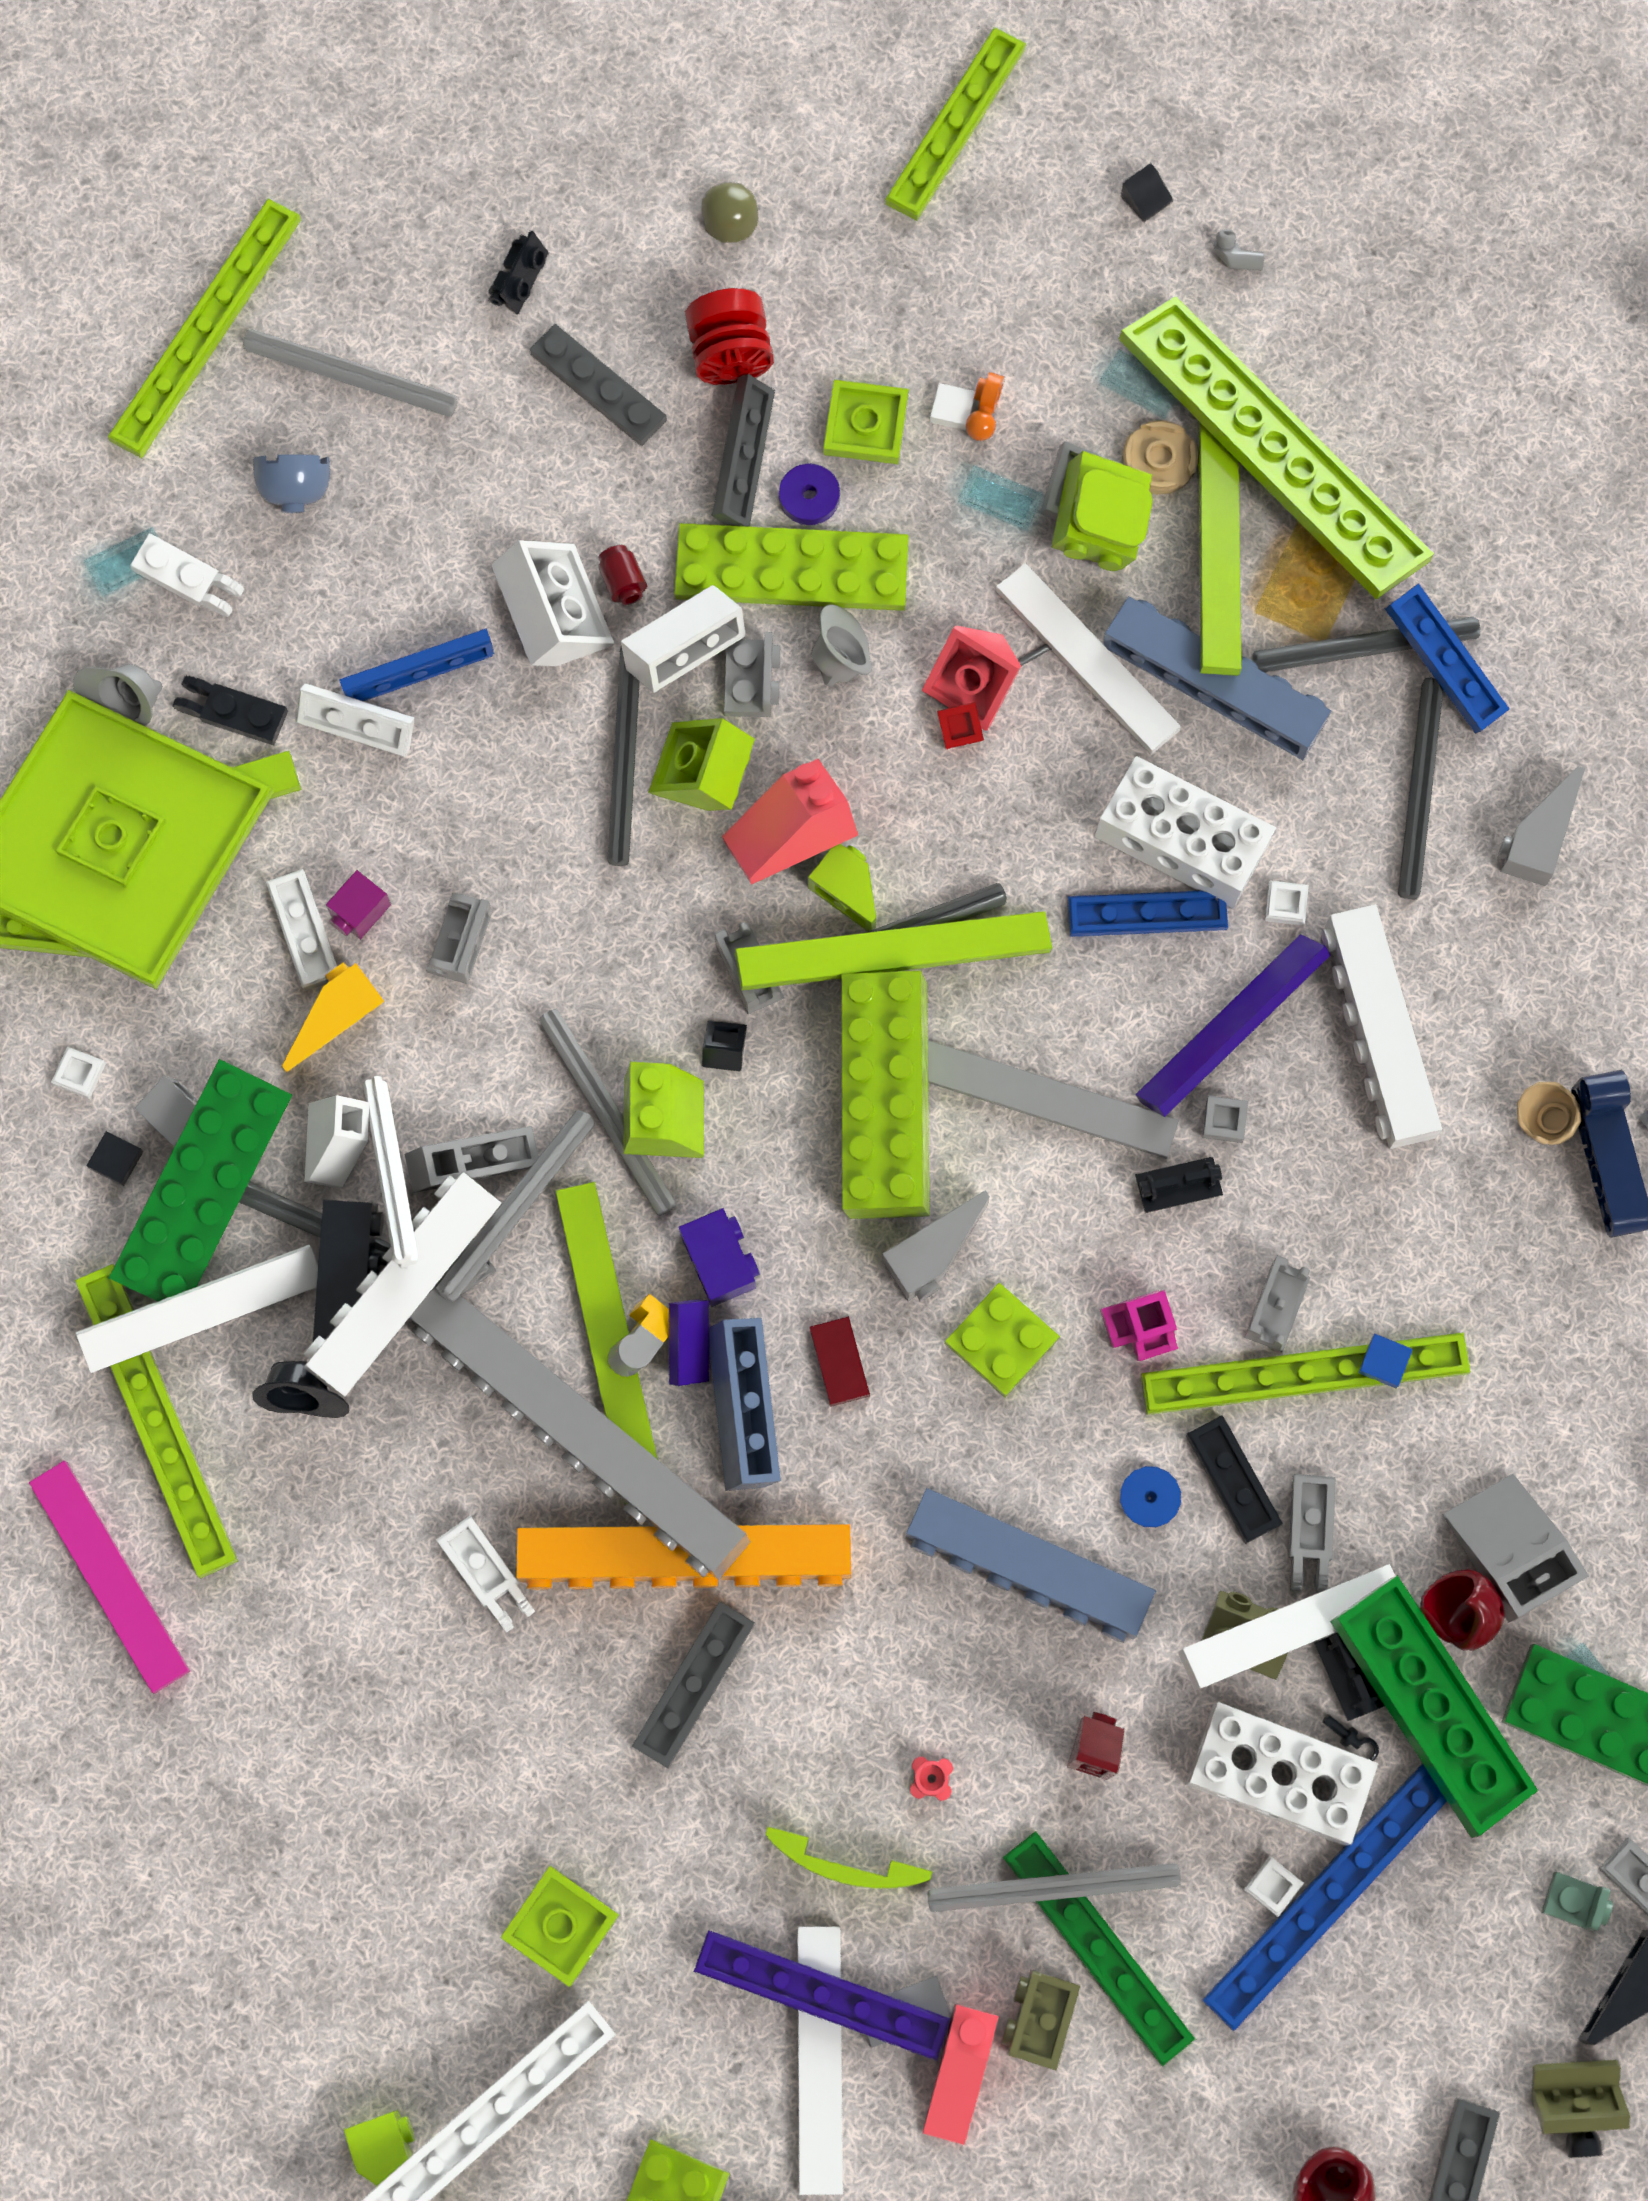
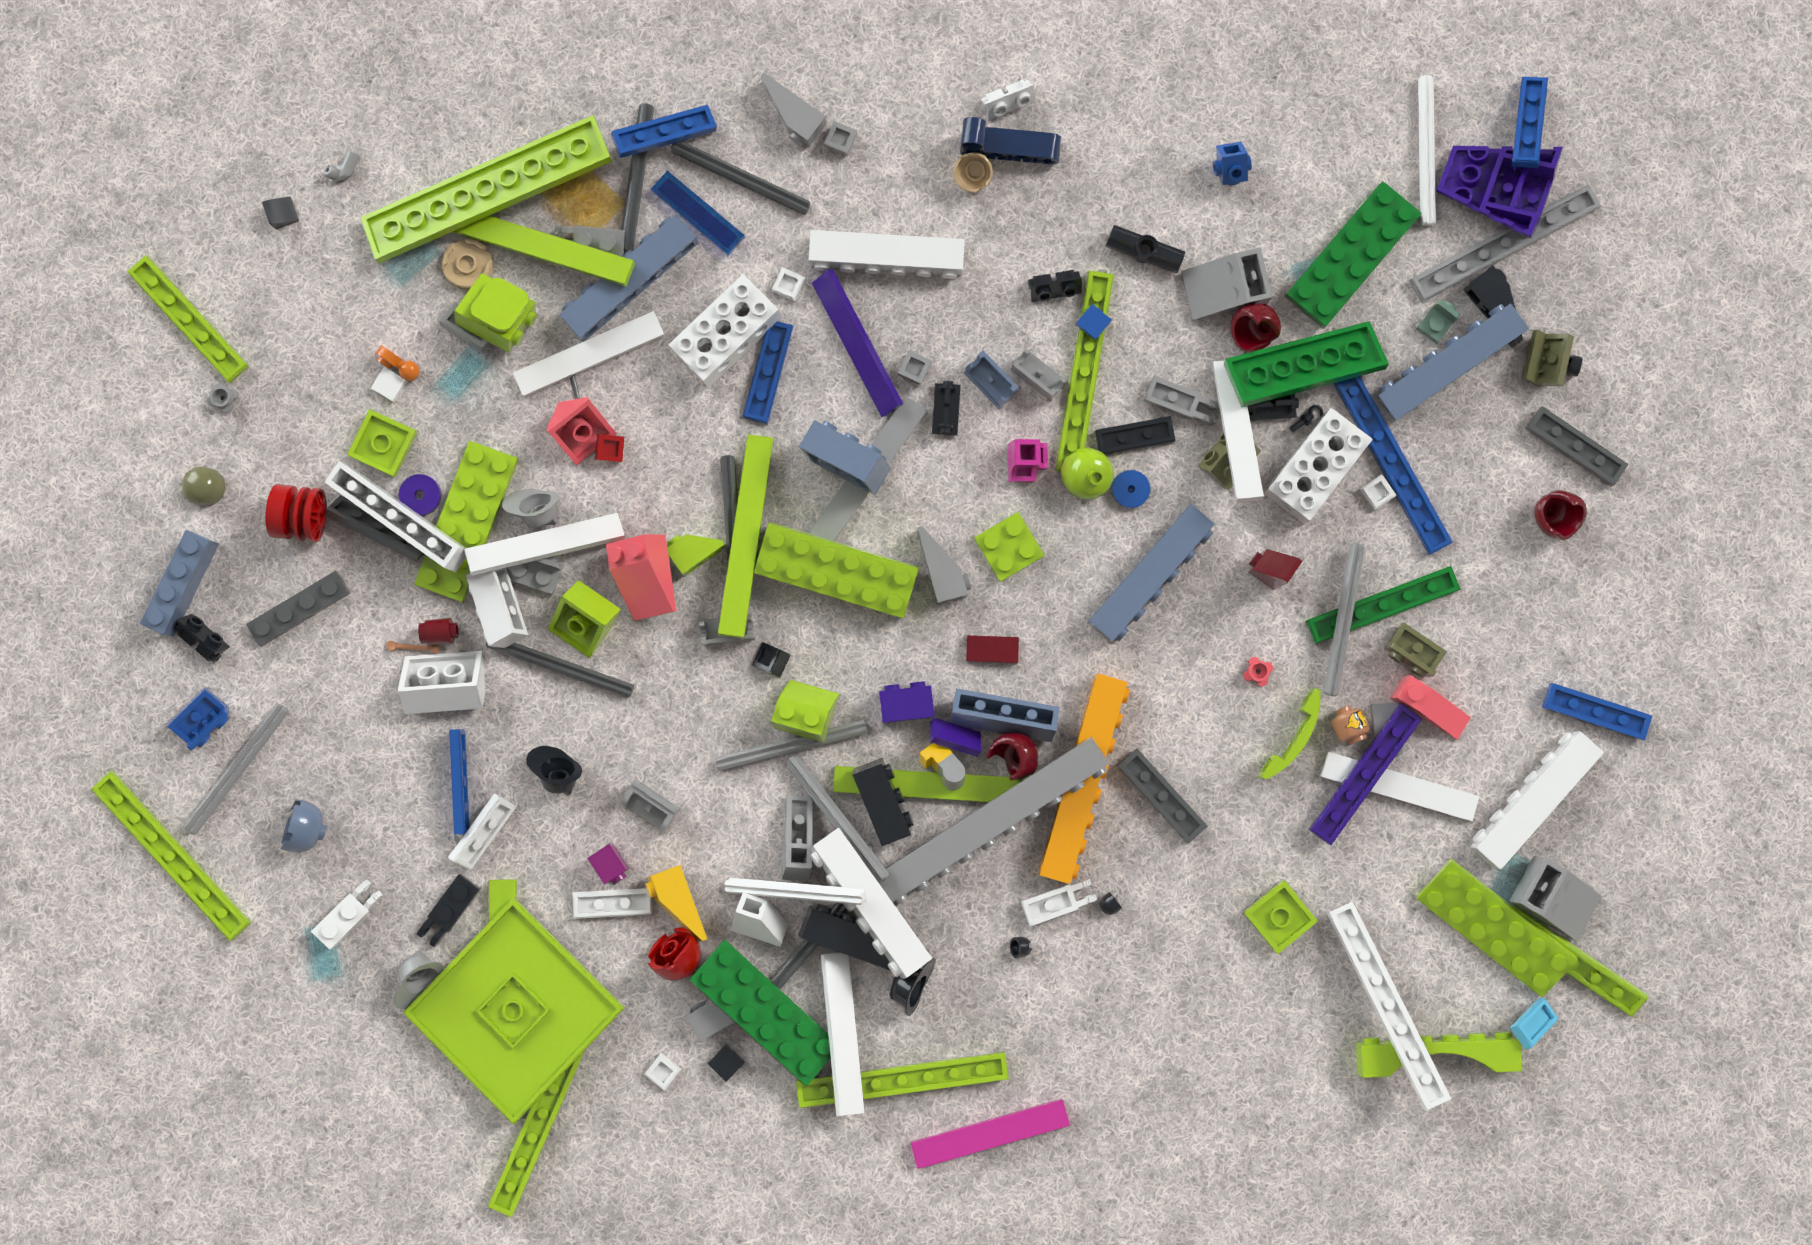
camera: 70 degrees left, 10 degrees up
(250, 1036) = (675, 955): none -> red cylinder
(402, 1536) = (1020, 947): none -> black hinge
(405, 303) = (199, 719): none -> blue bracket
(472, 788) = (554, 768): none -> black piece
(504, 1654) = (1109, 904): none -> black hinge
(561, 1263) = (883, 801): none -> black brick
(584, 523) = (392, 646): none -> nougat hinge
(585, 220) = (179, 583): none -> sand blue brick
(696, 1442) = (1019, 753): none -> dark red piece
(766, 469) = (397, 516): none -> white brick
(791, 675) = (544, 544): none -> white tile
(857, 190) = (216, 394): none -> light grey plate
(891, 1947) = (1350, 725): none -> nougat head
(1056, 1052) = (845, 456): none -> sand blue brick
(1151, 1420) = (1087, 473): none -> lime cylinder
(1244, 1236) = (991, 380): none -> sand blue hinge
(1258, 618) = (599, 238): none -> light grey hinge
(1346, 745) = (697, 213): none -> clear blue tile
(1428, 1305) = (1067, 284): none -> black hinge
(1517, 1938) = (1453, 362): none -> sand blue brick
(1526, 1381) = (1161, 255): none -> black piece
(1529, 910) = (840, 138): none -> light grey plate

